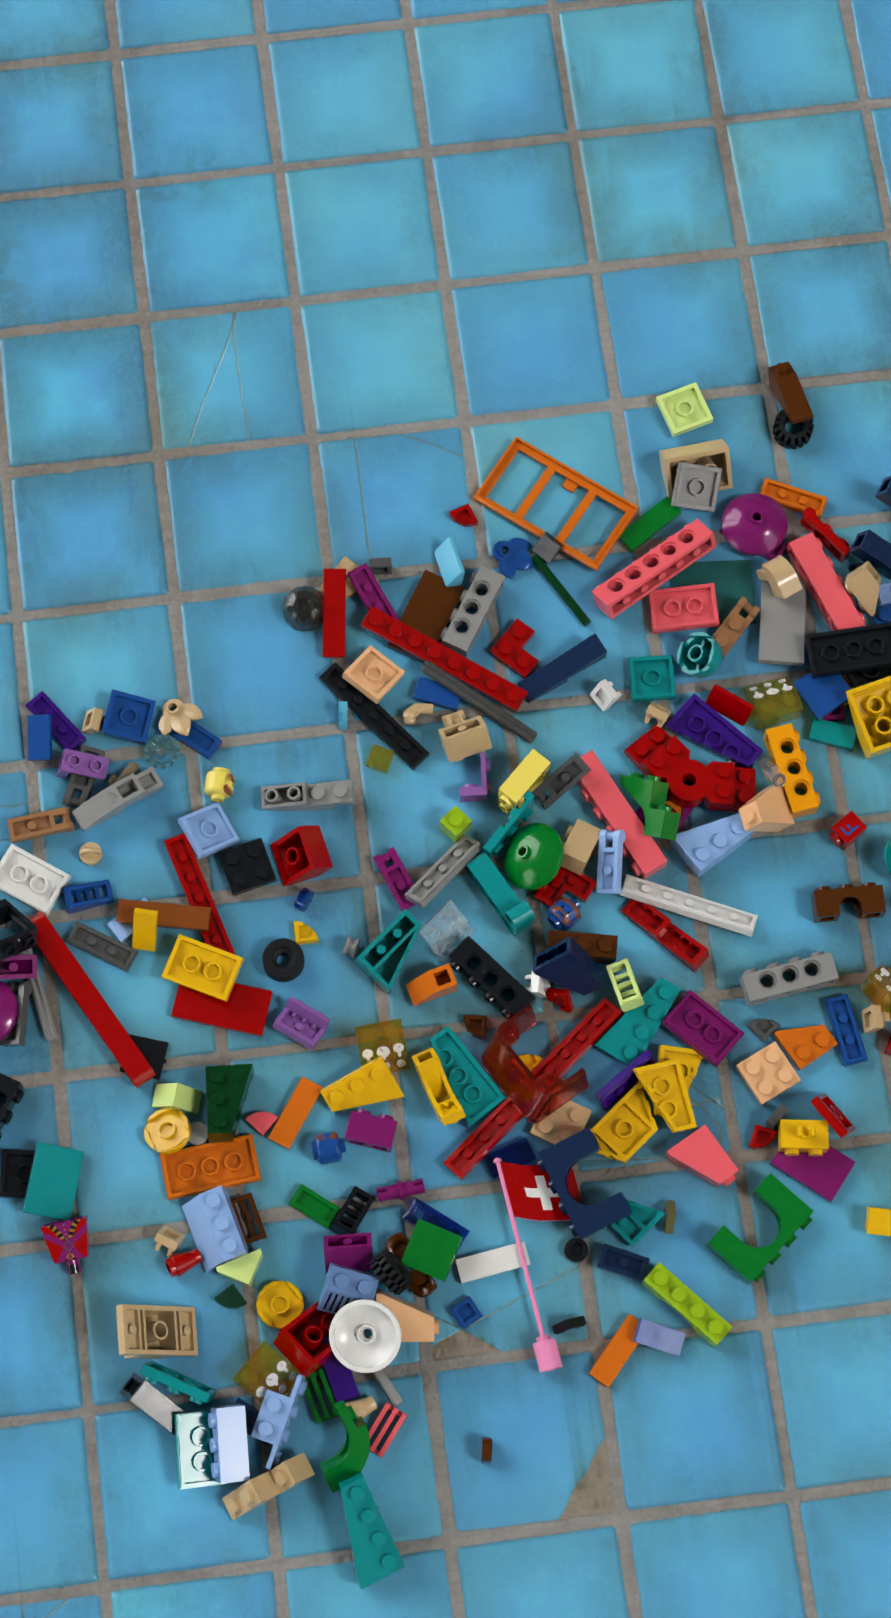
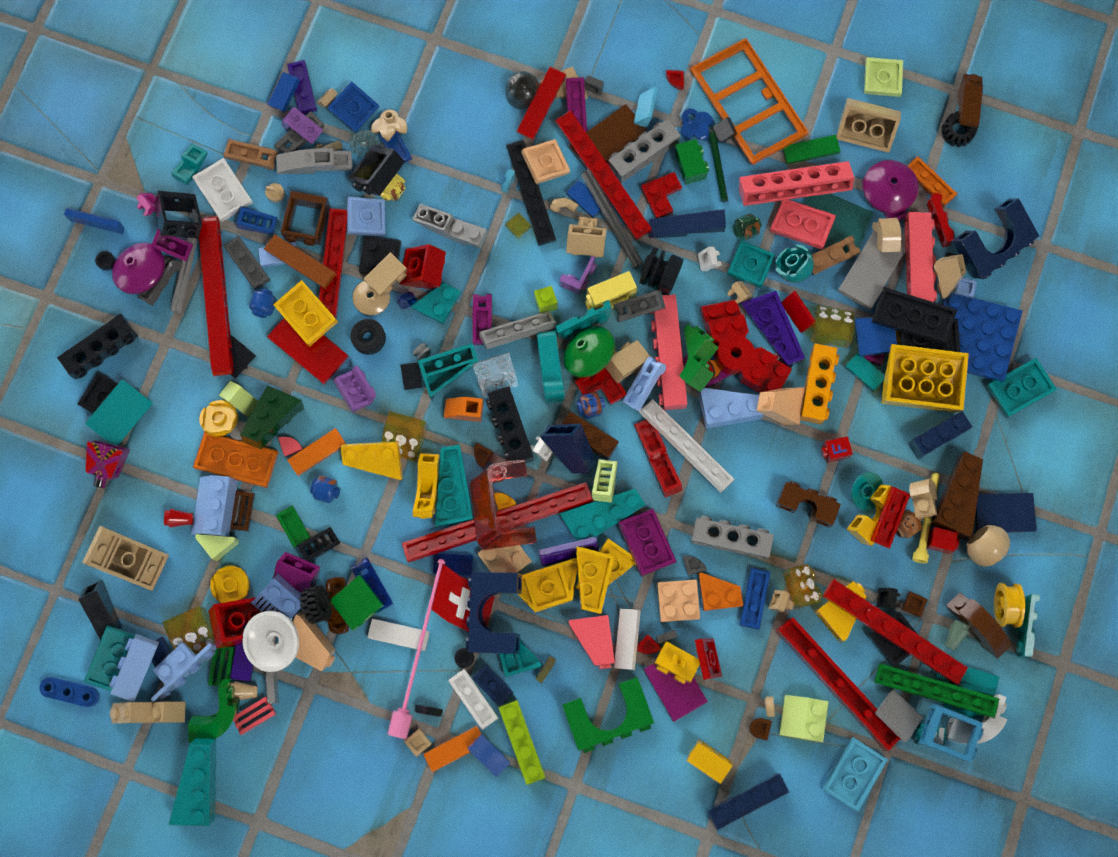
camera: 30 degrees right, 5 degrees up
(137, 844) = (310, 201): none -> reddish brown window
(145, 929) = (280, 265): yellow tile -> none
(147, 981) = (262, 303): none -> blue head
(169, 1238) = (176, 496): tan tile -> none
(177, 1382) = (123, 603): teal plate -> none
(178, 1511) = (77, 694): none -> blue plate
(207, 782) = (376, 170): none -> black window
(231, 1298) = (198, 562): clear green tile -> none
(261, 926) = (366, 305): none -> tan dish
(269, 882) = (386, 275): none -> tan brick
(304, 934) = (394, 325): yellow tile -> none
(339, 886) = (438, 303): none -> teal wing
(353, 979) = (411, 376): none -> black piece
(371, 1130) = (362, 493): magenta brick -> none
(400, 1190) = (360, 547): magenta pin -> none
(466, 1313) = (359, 661): blue tile -> none
(486, 1450) = (318, 770): reddish brown tile -> none
(530, 599) = (691, 162): none -> green brick
(561, 998) = (554, 466): red tile -> none
(563, 732) = (661, 271): none -> black wheel
(576, 1365) = (418, 742): none -> tan tile
(609, 1288) = (473, 699): none -> white tile
(627, 640) = (746, 227): none -> clear green head
(696, 486) = (860, 137): light grey tile -> none
(737, 1140) = (627, 639): none -> white tile
(772, 772) = (801, 378): clear pin -> none

